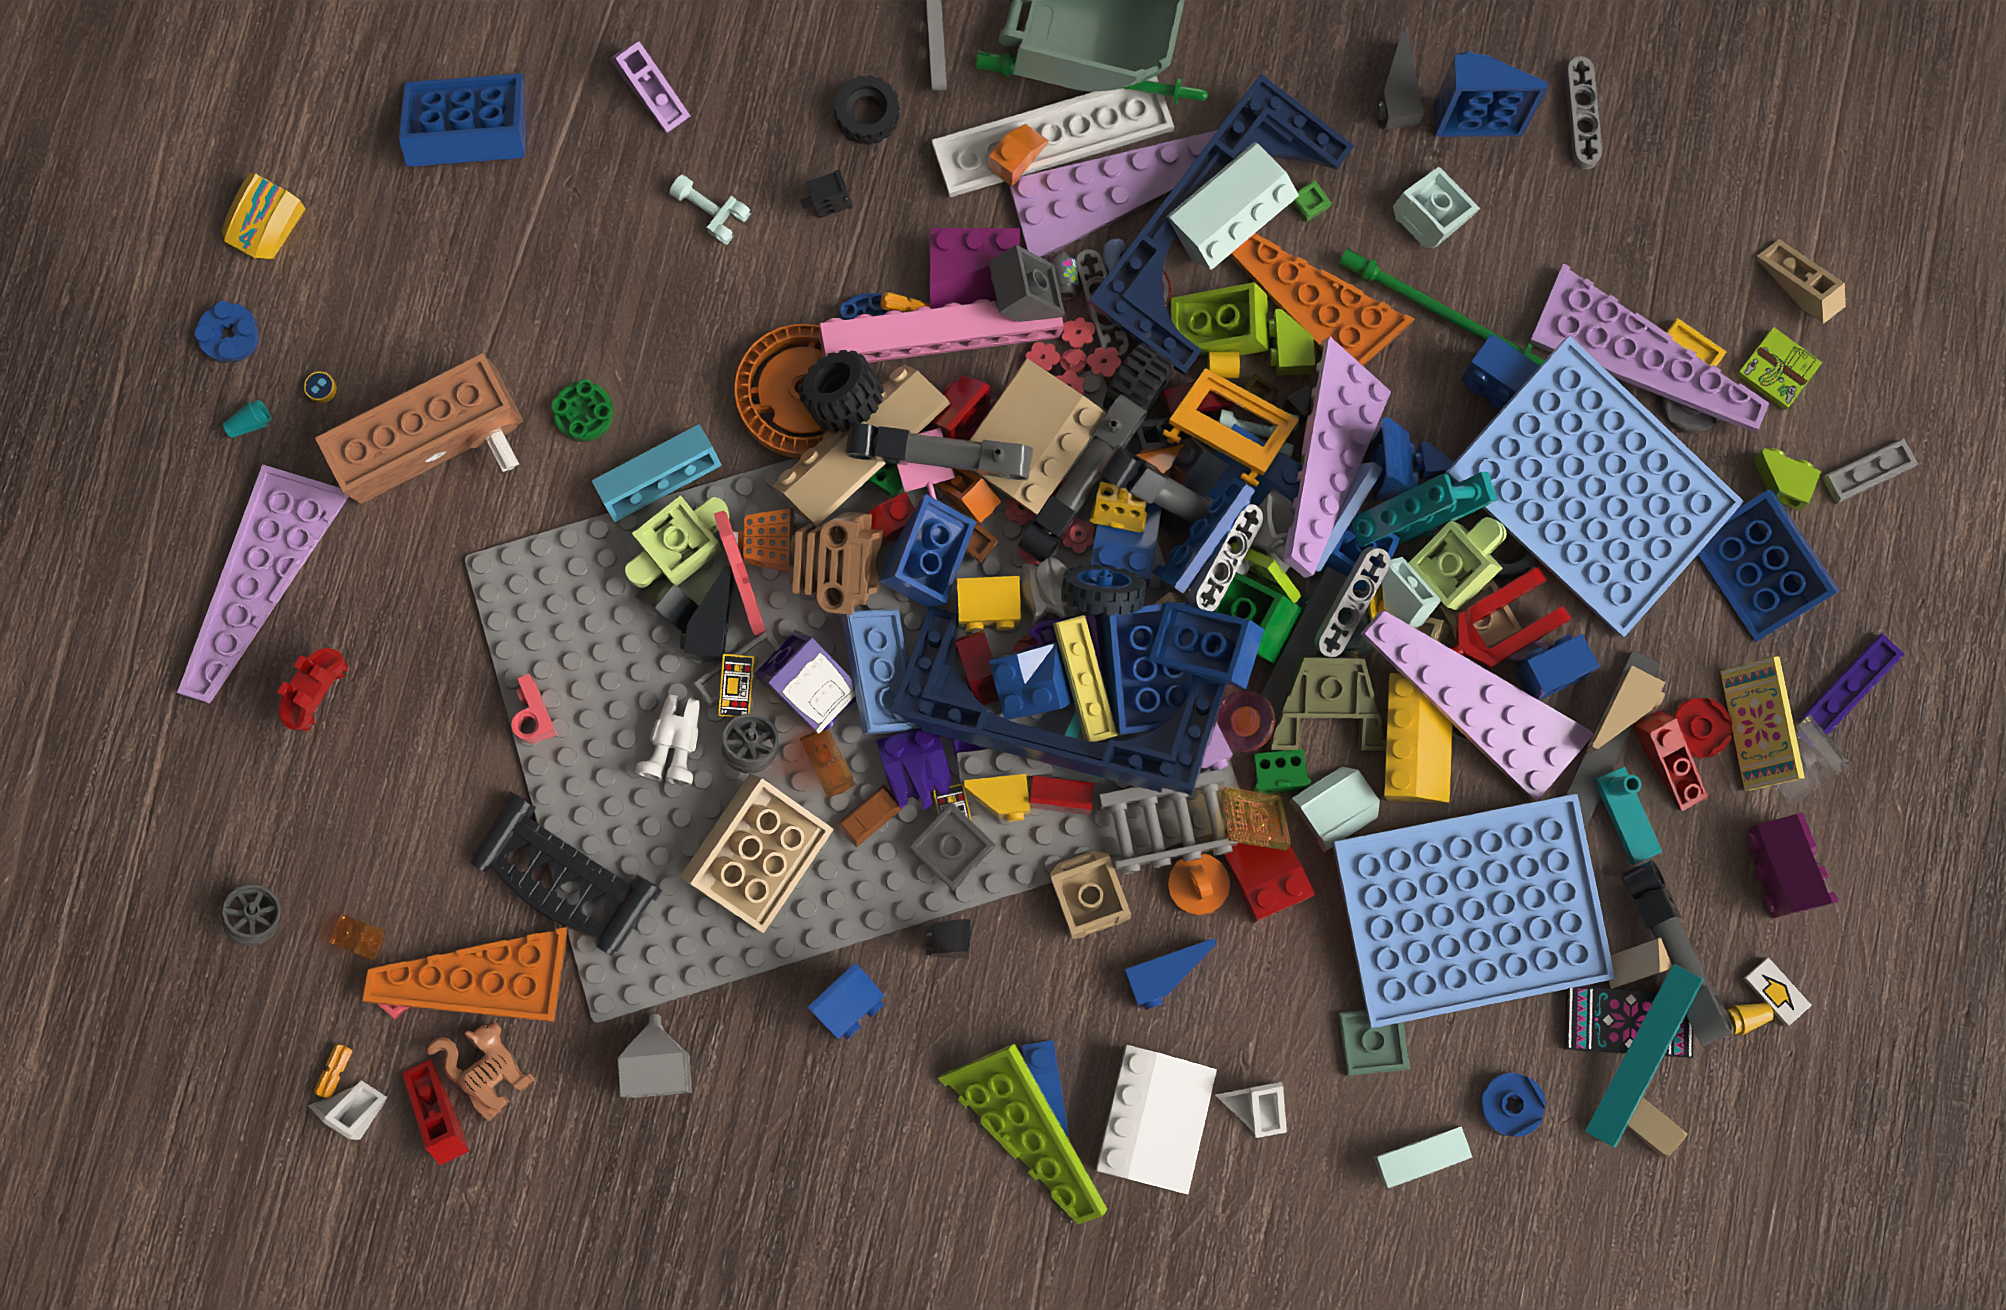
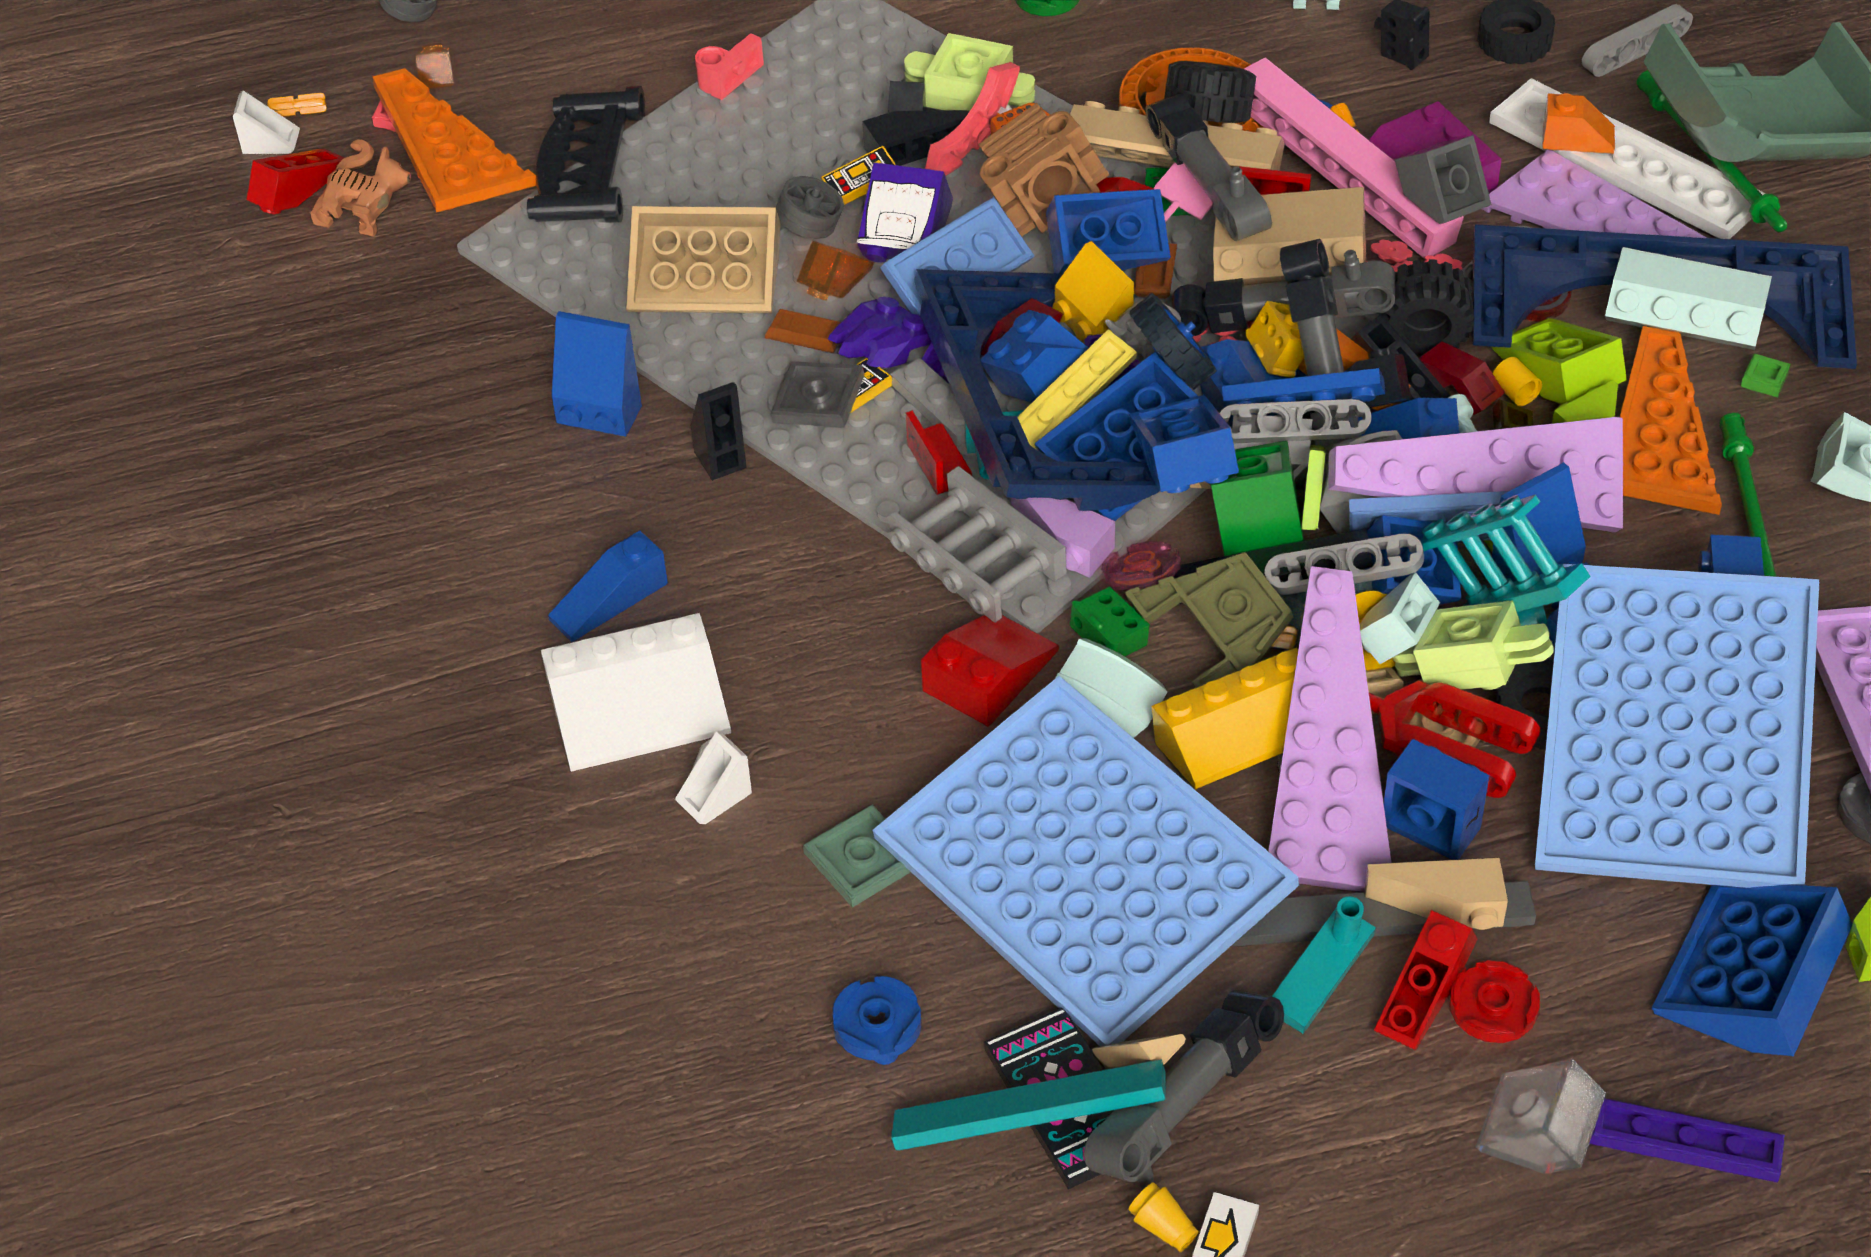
camera: 65 degrees right, 30 degrees down
(654, 1064) = (434, 285): light grey piece -> none
(656, 473) = (1034, 47): medium azure brick -> none
(675, 733) = (773, 164): white piece -> none
(969, 494) = (1194, 247): orange slope -> none
(1002, 795) = (900, 395): yellow slope -> none
(1021, 1120) = (551, 585): lime wing -> none
(1066, 275) = (1495, 214): flat silver brick -> none
(1089, 894) = (841, 527): tan slope -> none
(1161, 975) = (809, 629): blue slope -> none
(1199, 885) = (927, 614): orange tile -> none
(1225, 439) = (1428, 387): light orange piece -> none
(1255, 818) = (1035, 612): clear yellow tile -> none
(1422, 1157) = (750, 953): light aqua slope -> none
(1656, 1129) = (949, 1182): tan slope -> none
(1762, 724) = (1548, 1042): light yellow tile -> none
(1788, 866) = (1386, 1157): magenta wedge -> none

